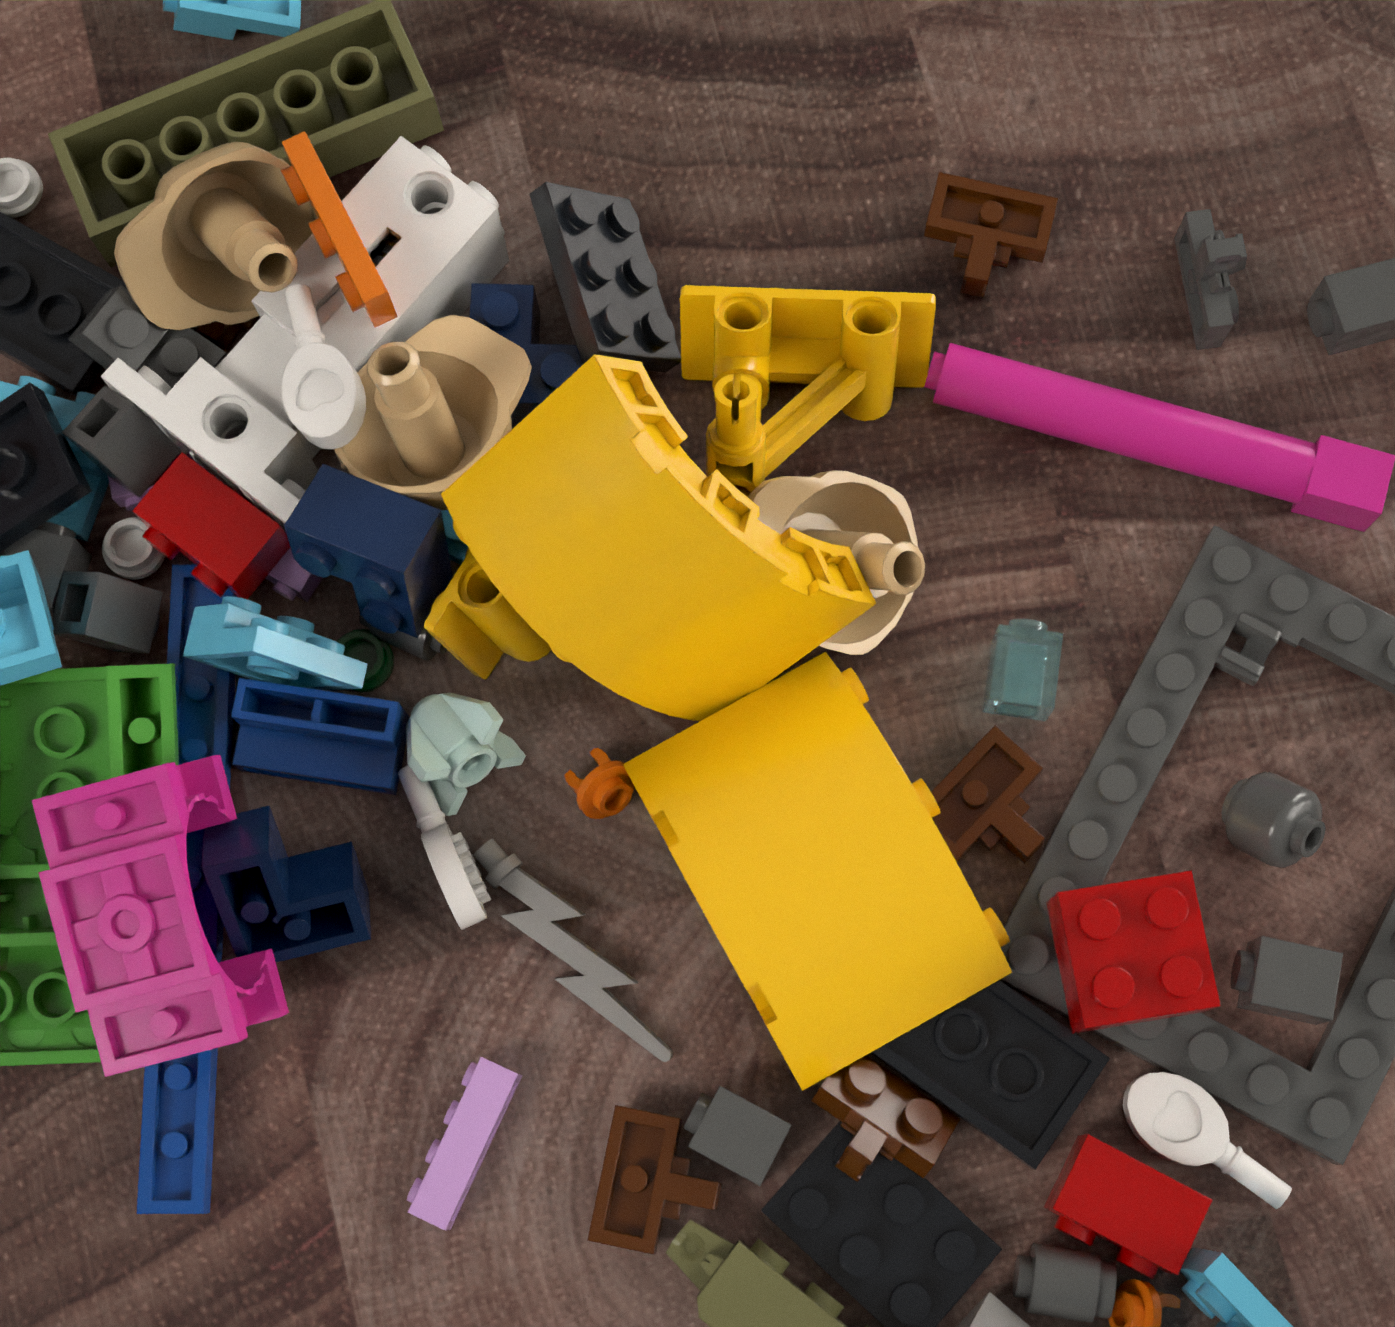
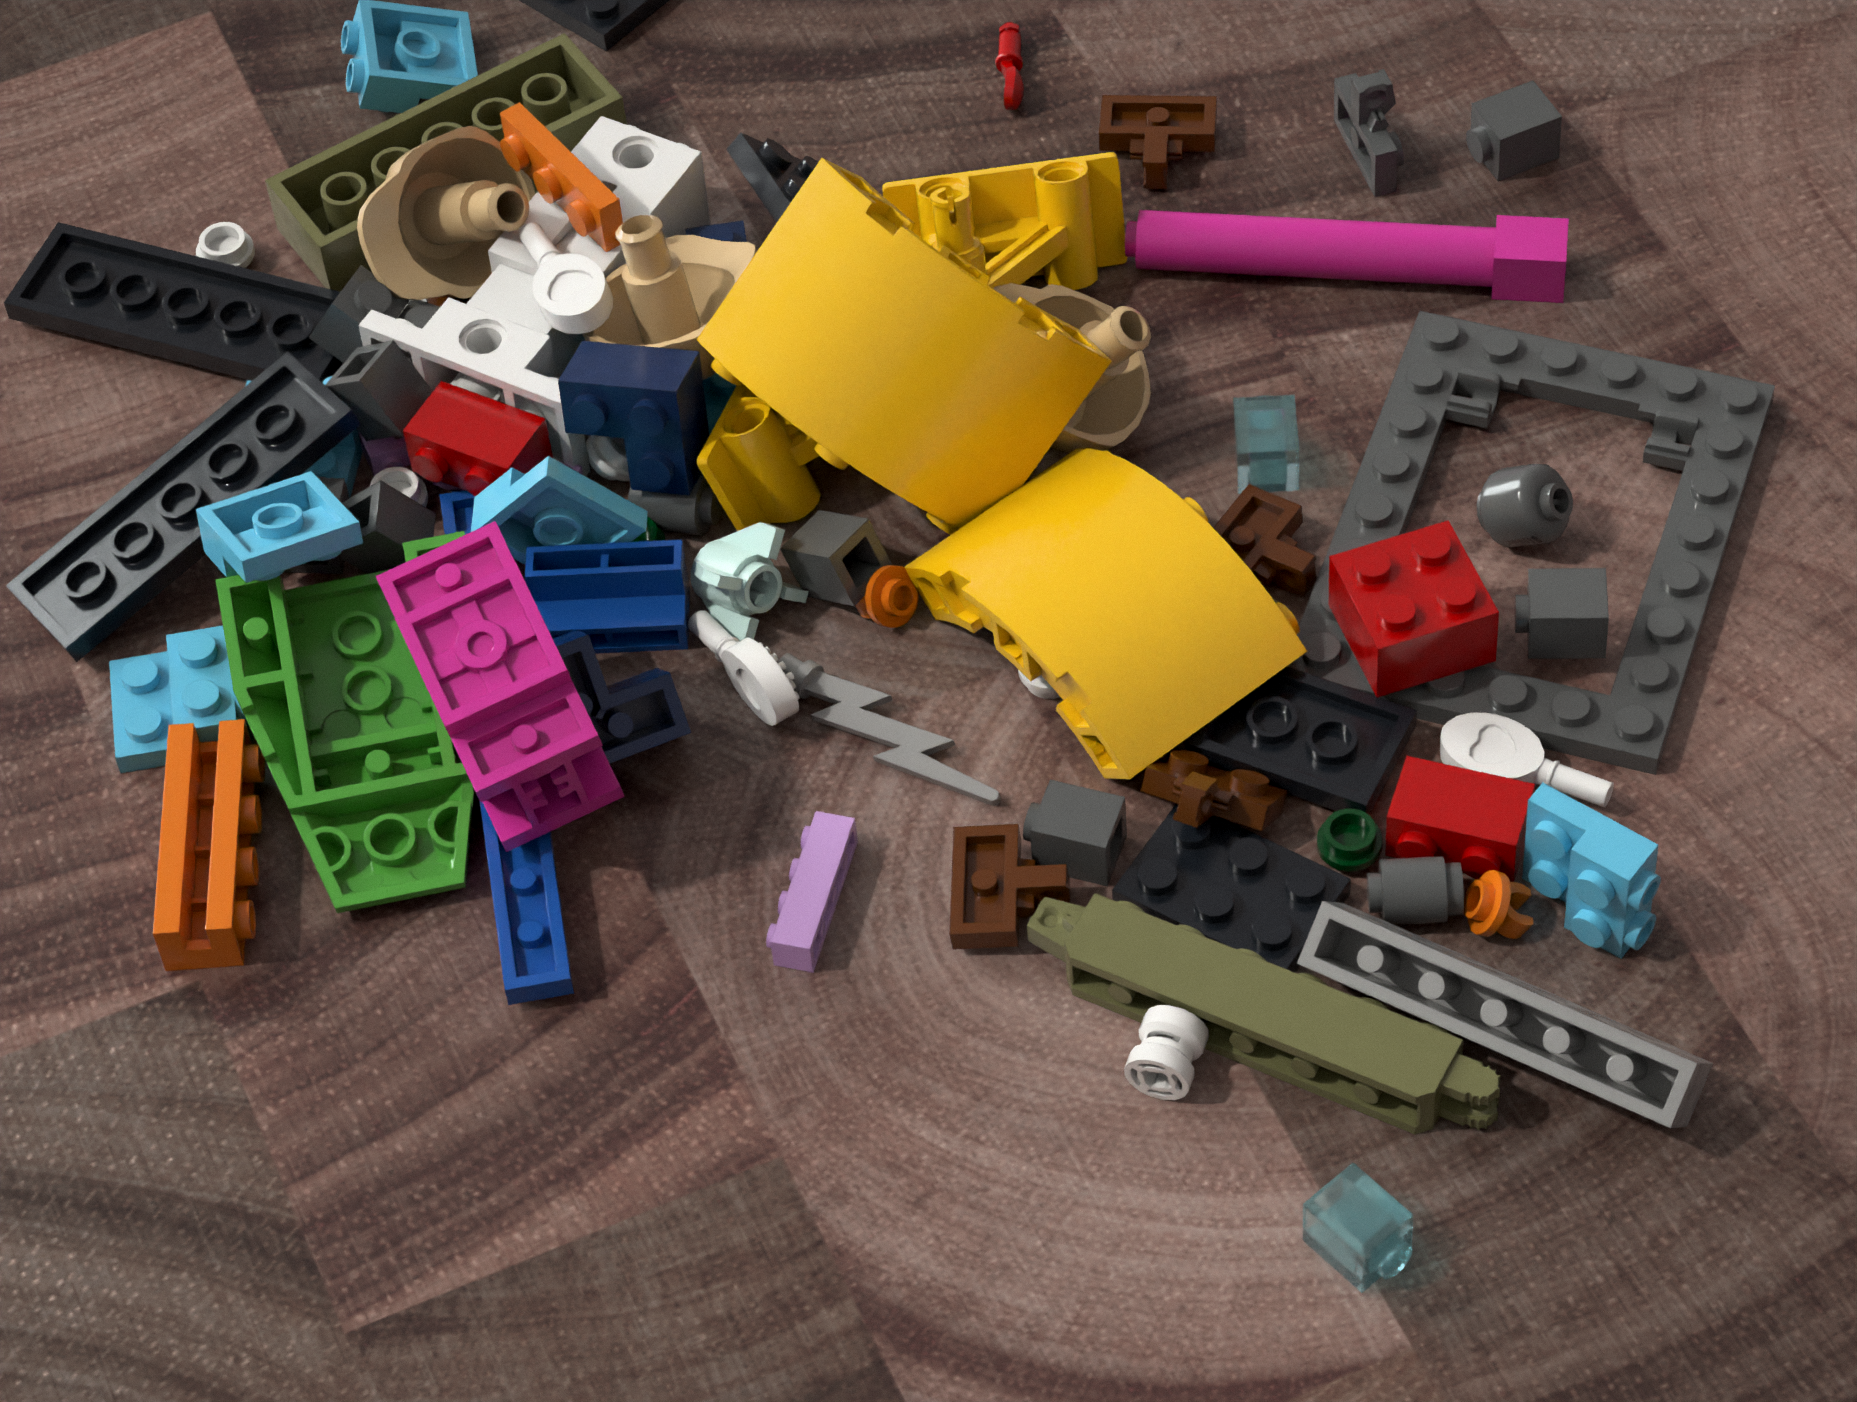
camera: 10 degrees left, 25 degrees down
(556, 737) = (835, 556): none -> dark grey brick
(853, 98) = (1010, 63): none -> red piece
(1010, 1196) = (1349, 840): none -> dark green plate

